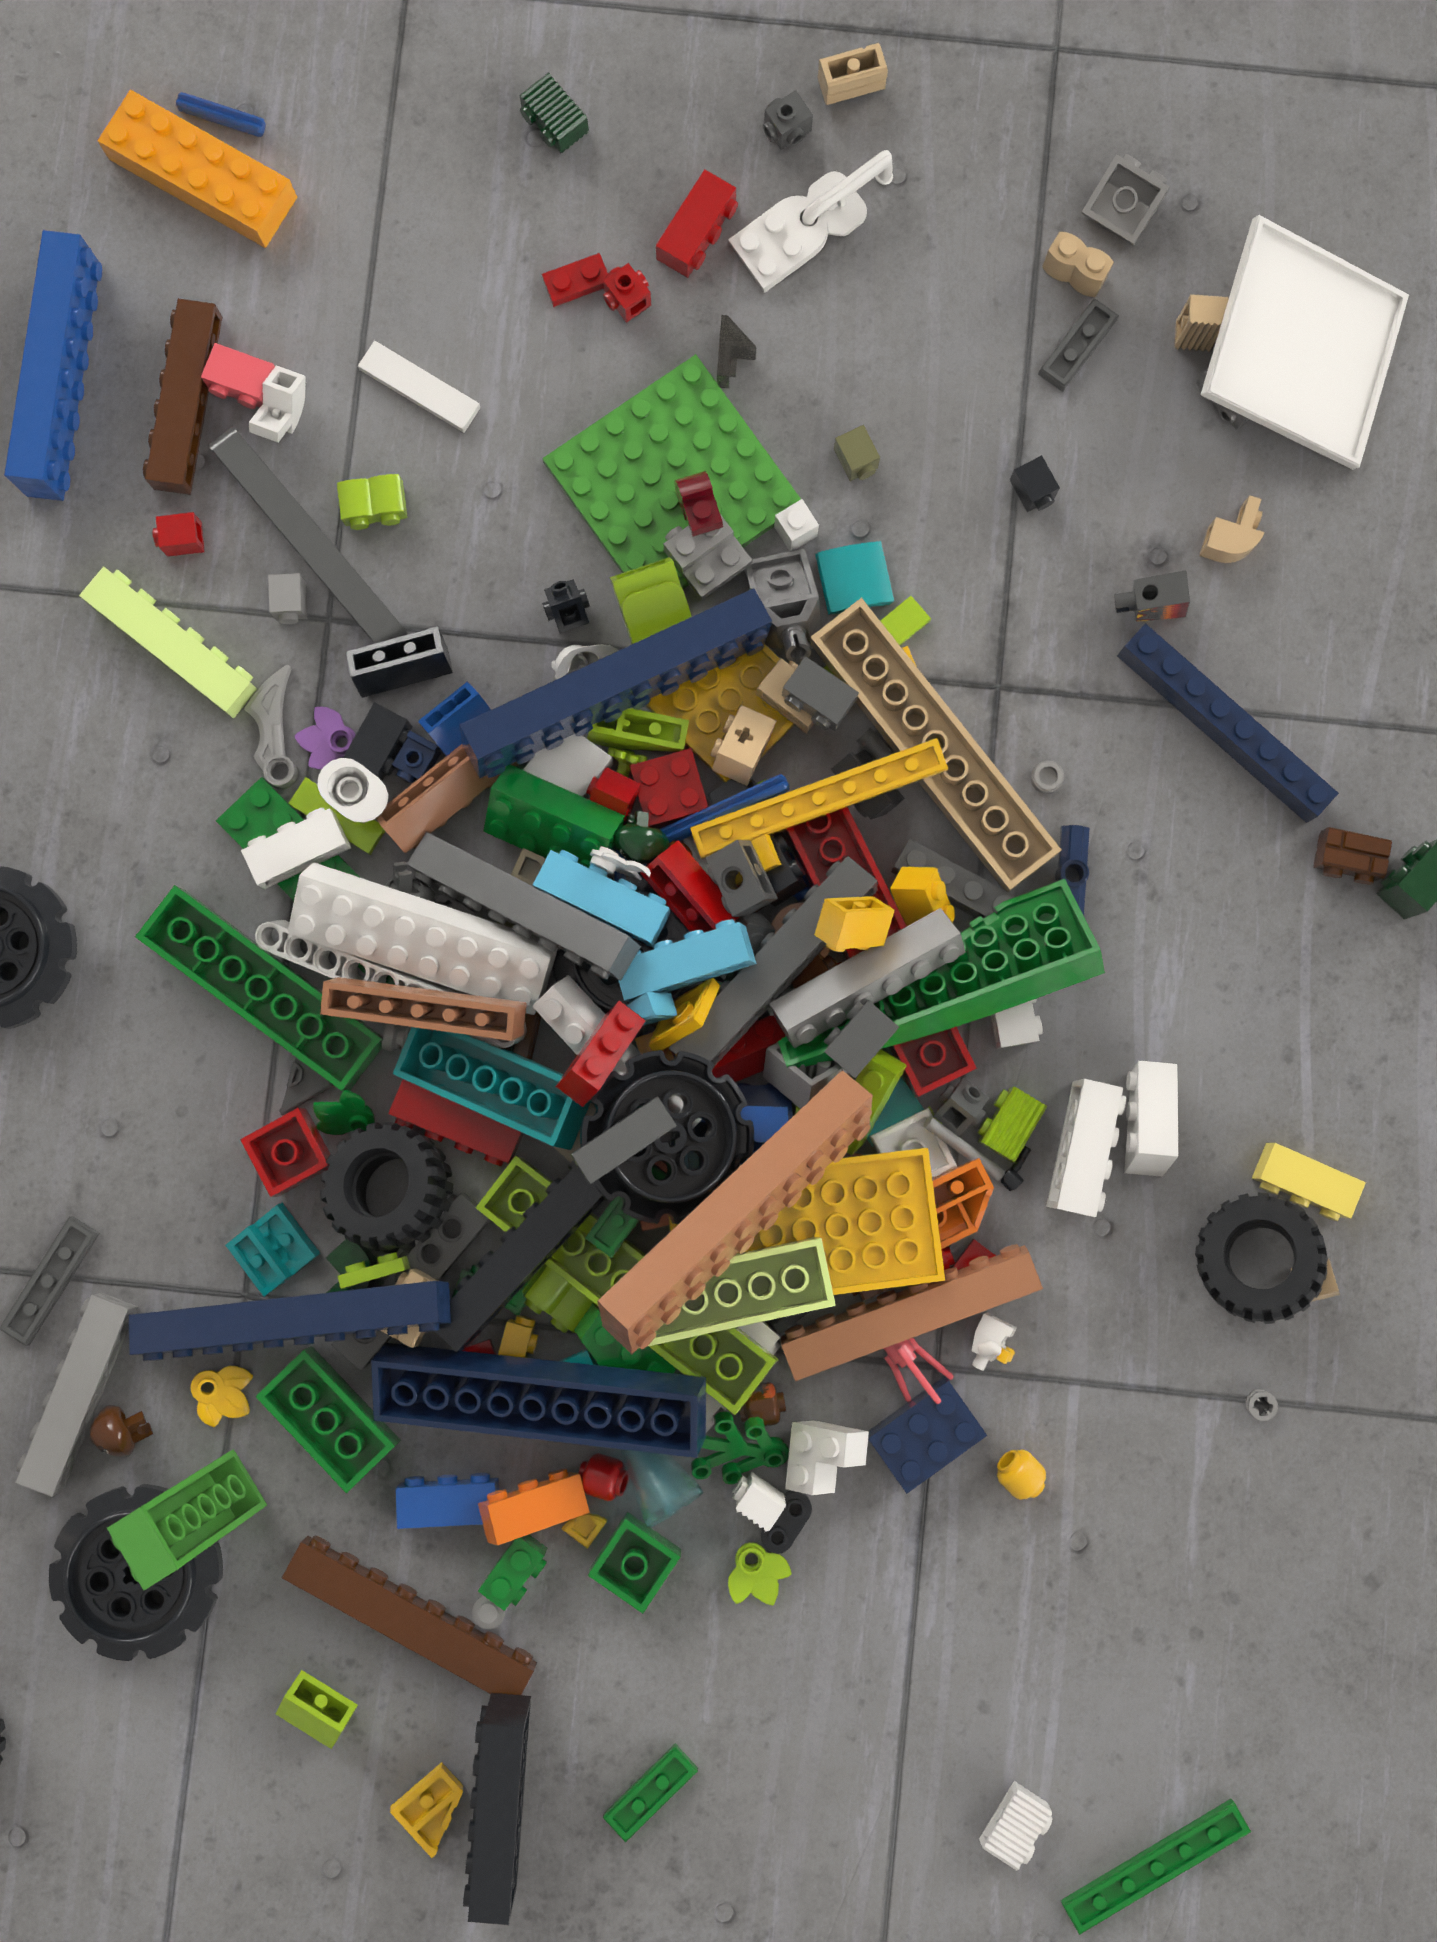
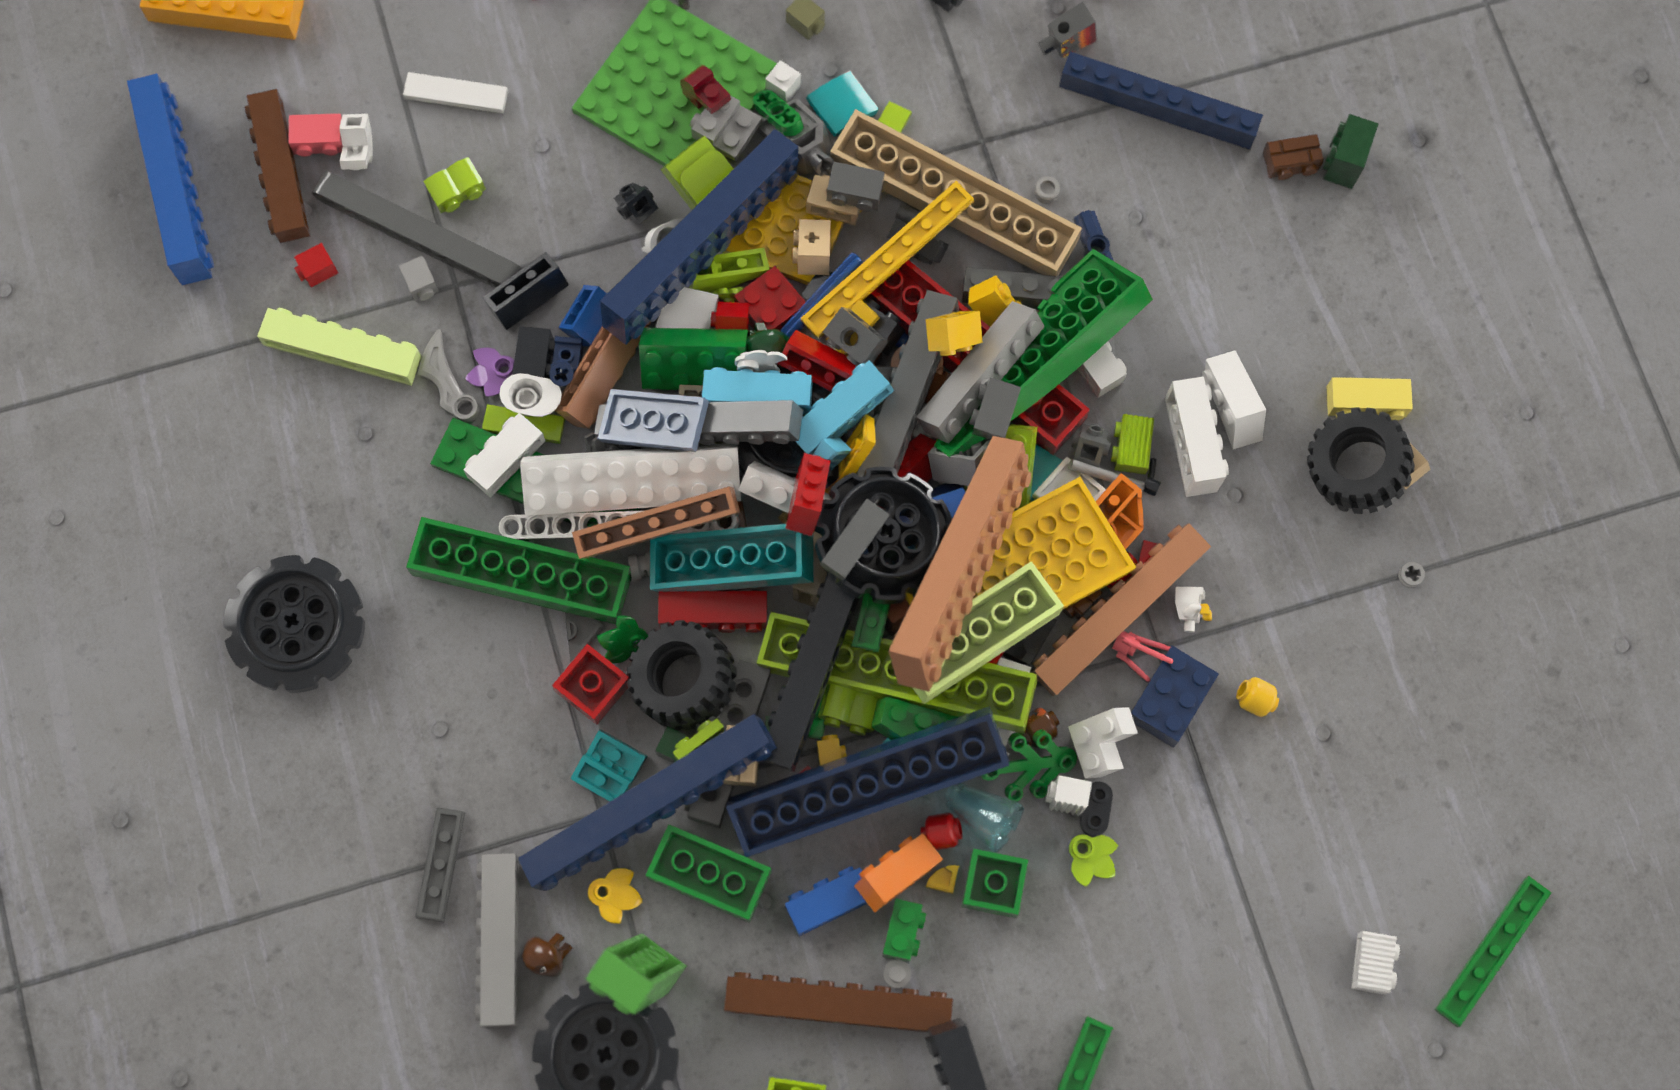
camera: 25 degrees left, 10 degrees down
(402, 771) = (563, 364): none -> dark blue bush
(471, 883) = (653, 420): none -> plate
(771, 572) = (779, 121): none -> green beam

